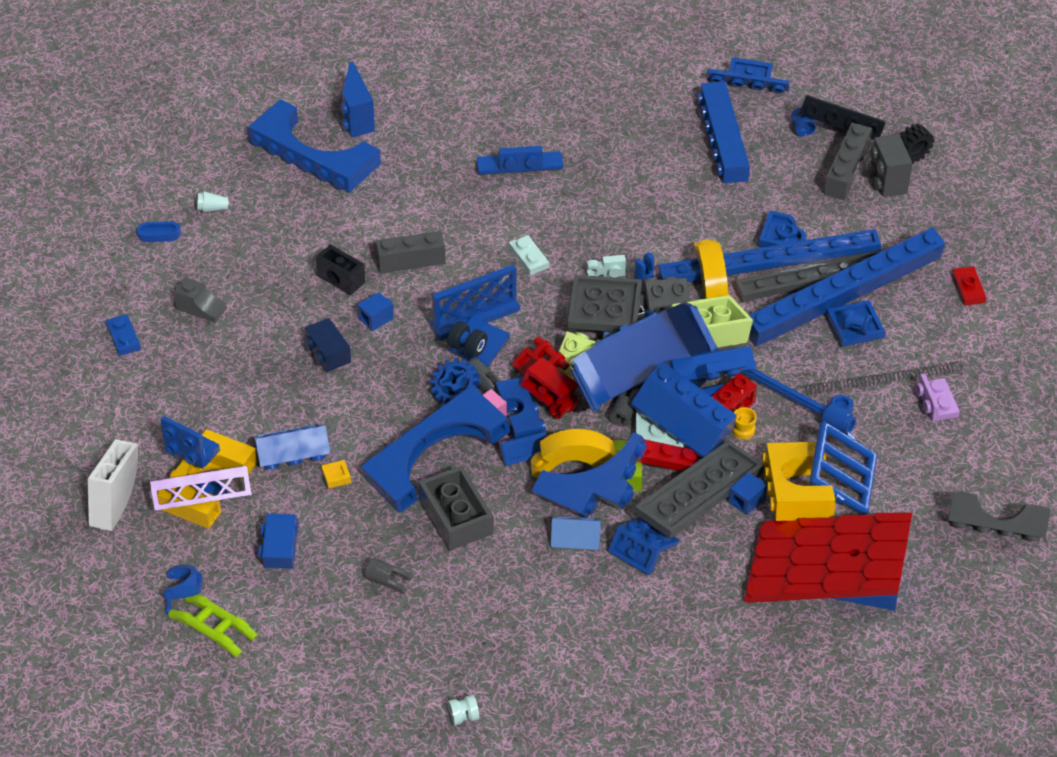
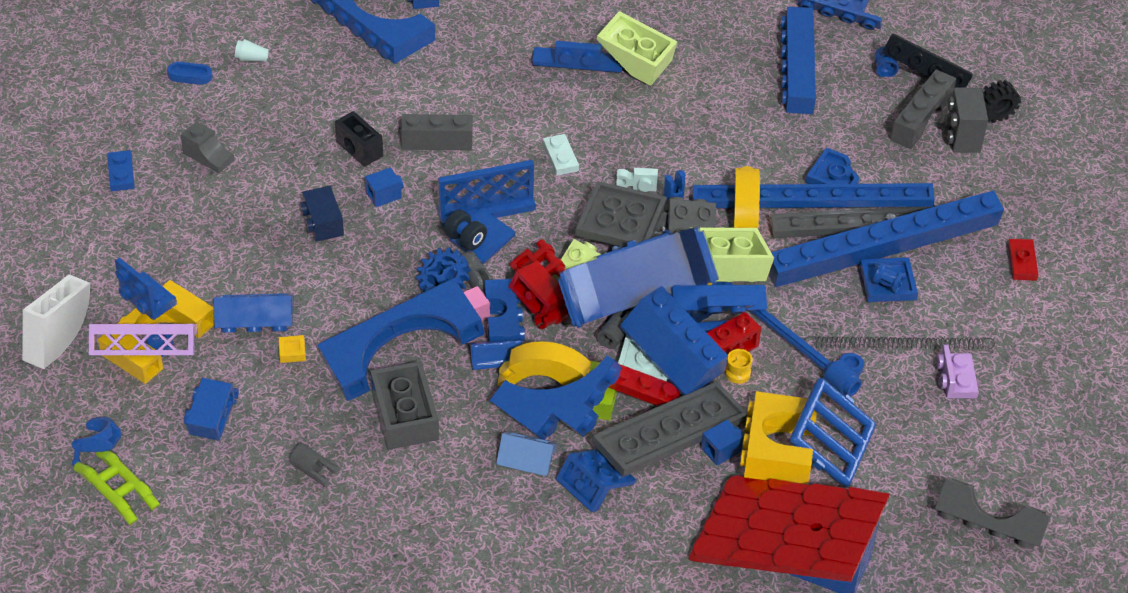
camera: 10 degrees right, 0 degrees up
(574, 143) = (637, 47): none -> yellowish green slope

